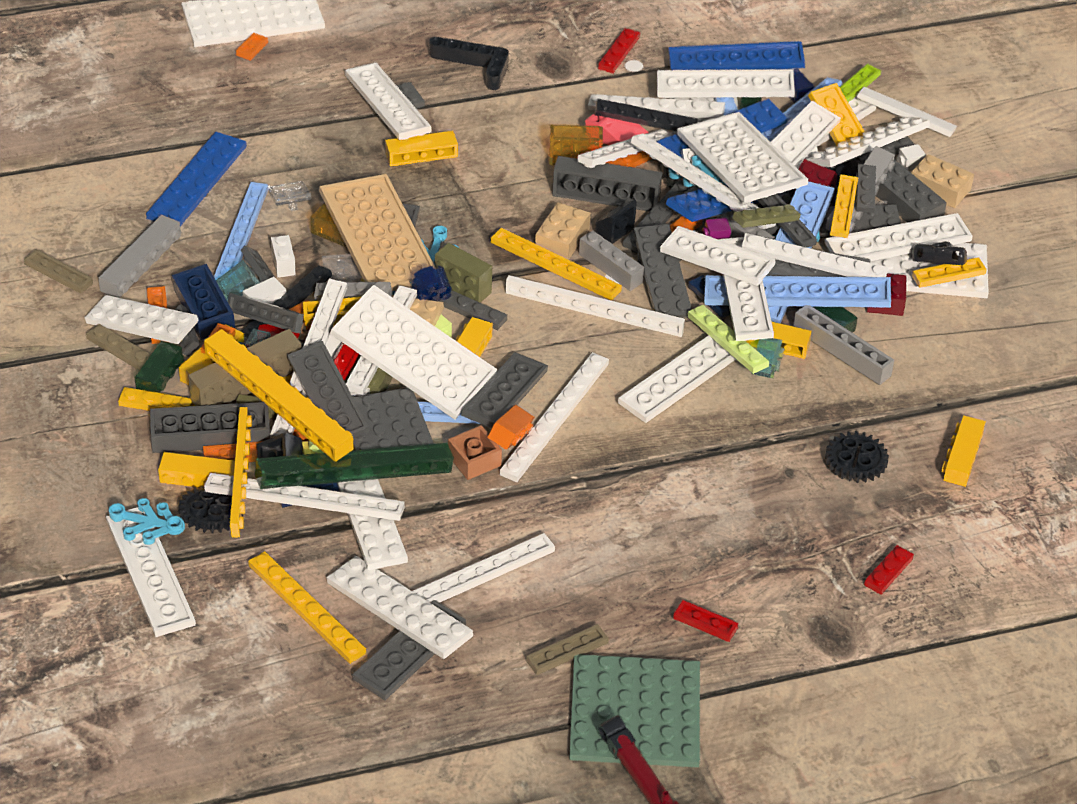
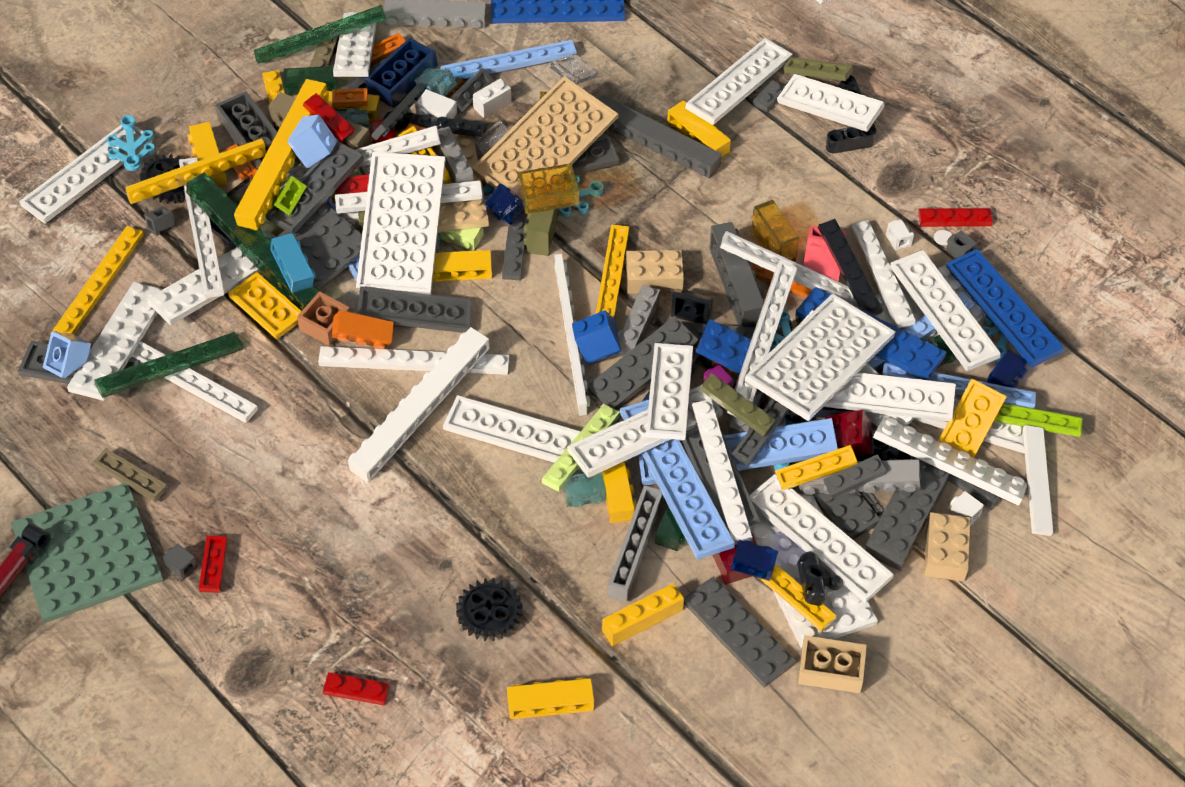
camera: 65 degrees right, 10 degrees up
(111, 336) = (319, 34): none -> clear green plate
(262, 533) = (159, 220): none -> dark grey brick
(263, 343) = (335, 122): none -> red plate
(283, 361) = (312, 140): none -> light blue slope
(330, 409) = (289, 195): none -> lime slope
(403, 642) = (65, 353): none -> light blue slope
(407, 441) = (292, 262): none -> dark azure brick
(410, 52) = (818, 69): none -> olive plate
(427, 489) = (266, 305): none -> yellow plate
(428, 167) = (663, 139): none -> dark grey brick
(451, 240) = (548, 188): none -> clear yellow brick
(455, 59) = (831, 102): none -> white plate
(460, 576) = (168, 364): none -> clear green plate
(617, 423) = (418, 404): none -> white brick
(618, 84) = (899, 235): none -> white brick
(621, 283) = (597, 337): none -> blue slope
(655, 57) = (960, 244): none -> dark grey brick
(691, 642) = (180, 561): none -> dark grey brick
(909, 275) = (754, 559): none -> clear blue brick
(913, 367) = (642, 614): none -> yellow brick
(953, 323) = (739, 631): none -> dark grey plate
(1017, 280) = (832, 664): none -> tan brick

